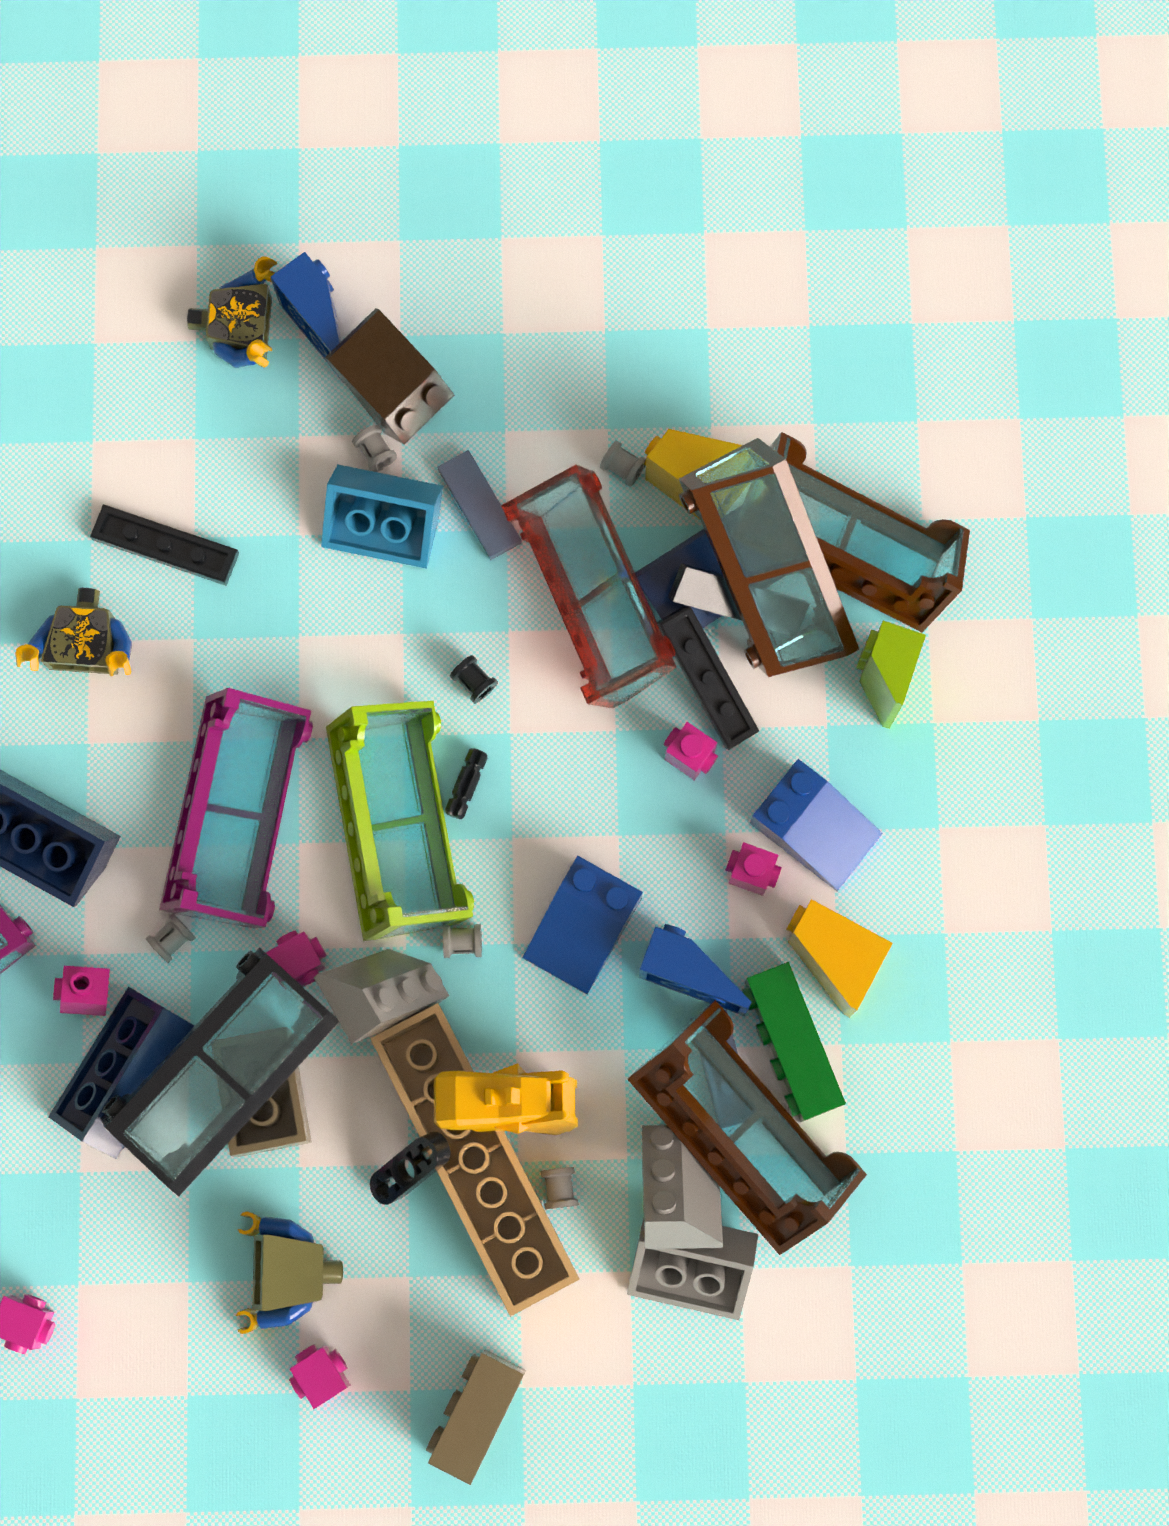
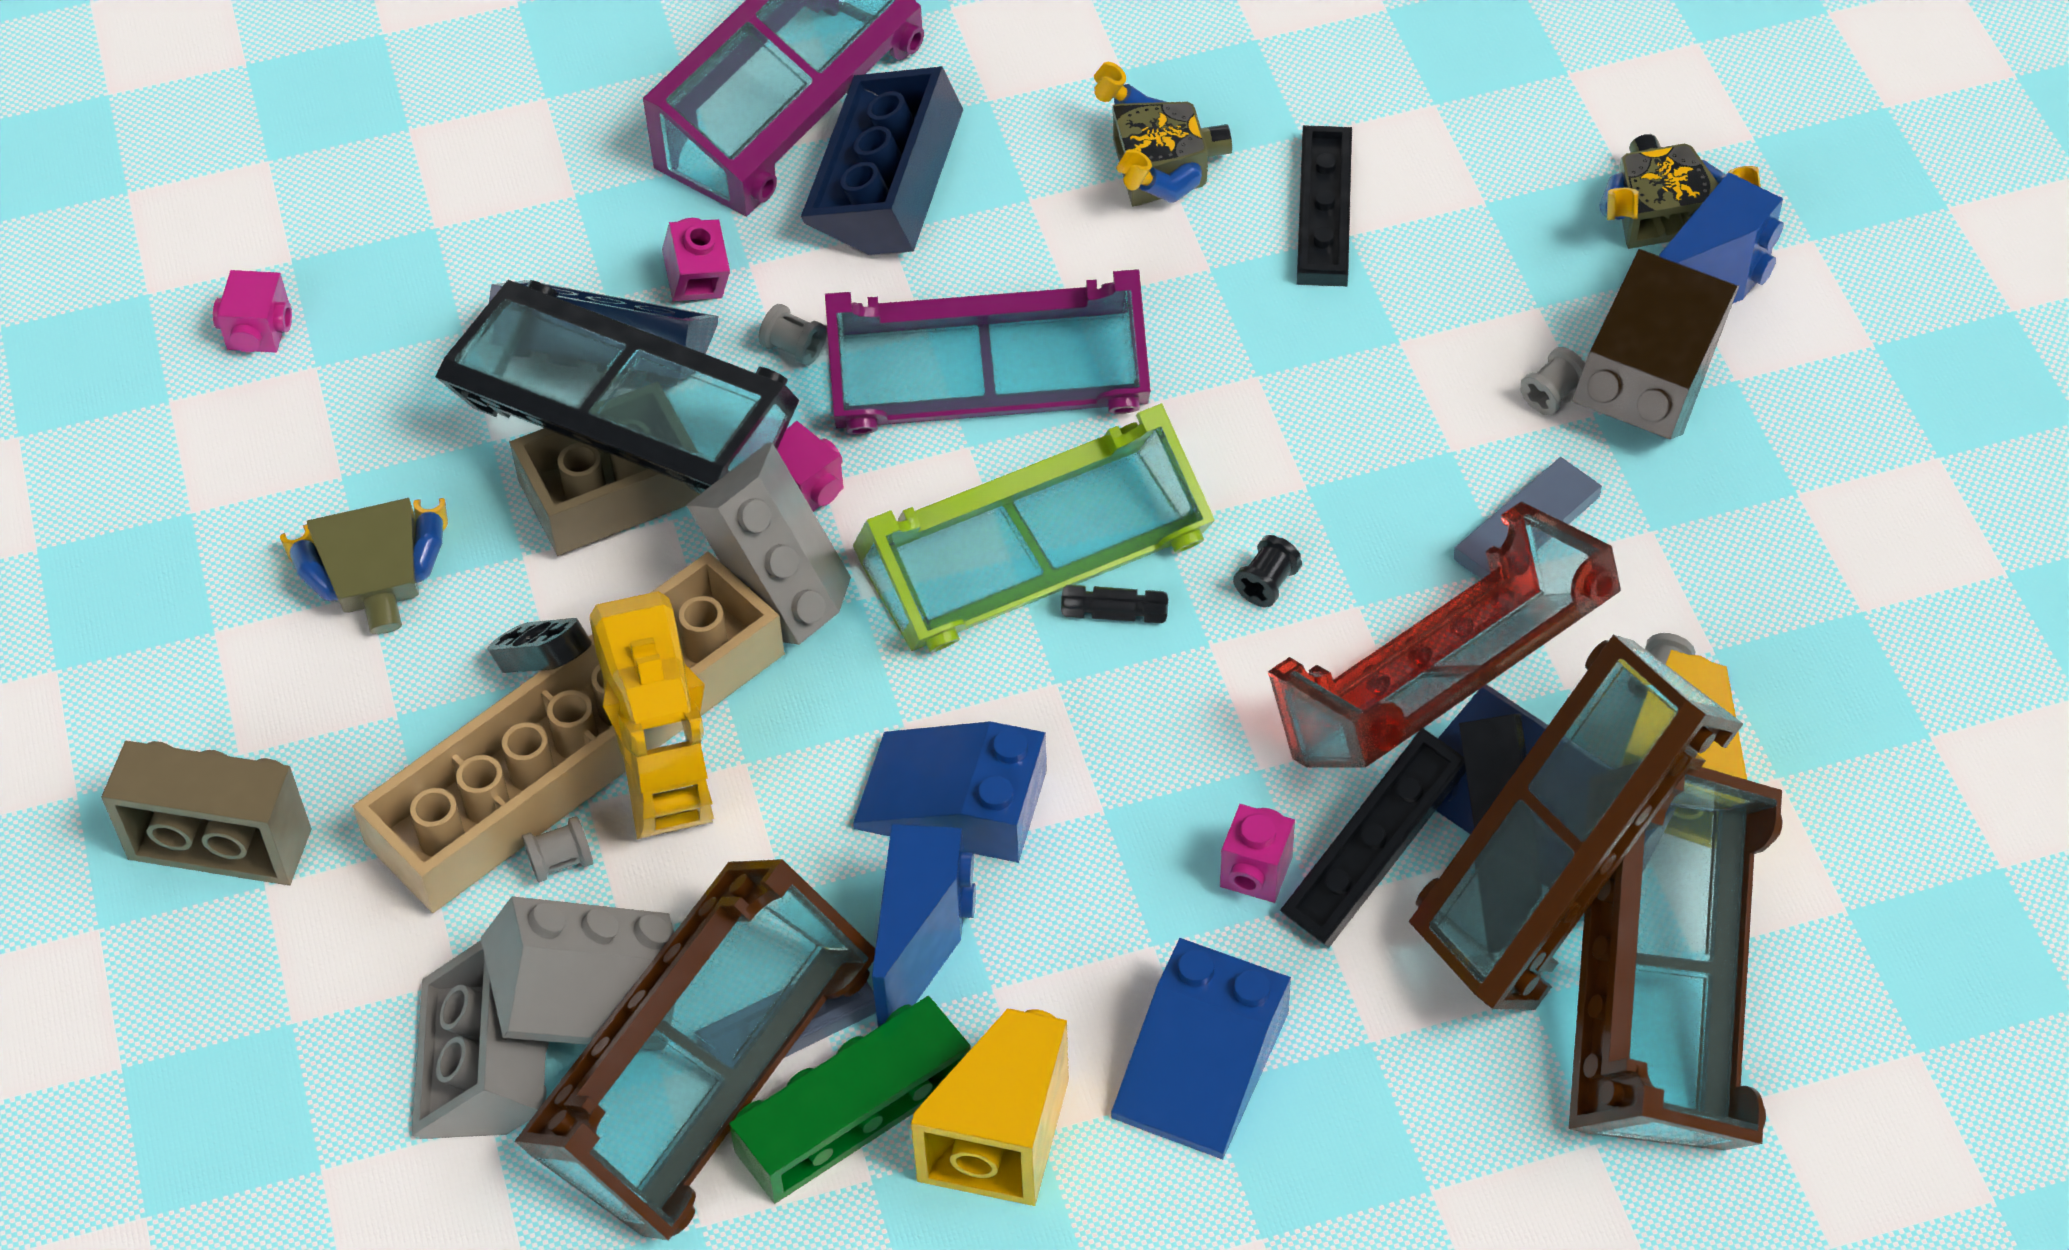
camera: 75 degrees right, 25 degrees down
(319, 1375) = (237, 634): dark pink brick -> none
(381, 516) = (1461, 409): dark azure slope -> none
(462, 941) = (884, 648): light grey bush -> none
(753, 869) = (1103, 976): dark pink brick -> none
(888, 668) = (1471, 1061): lime slope -> none

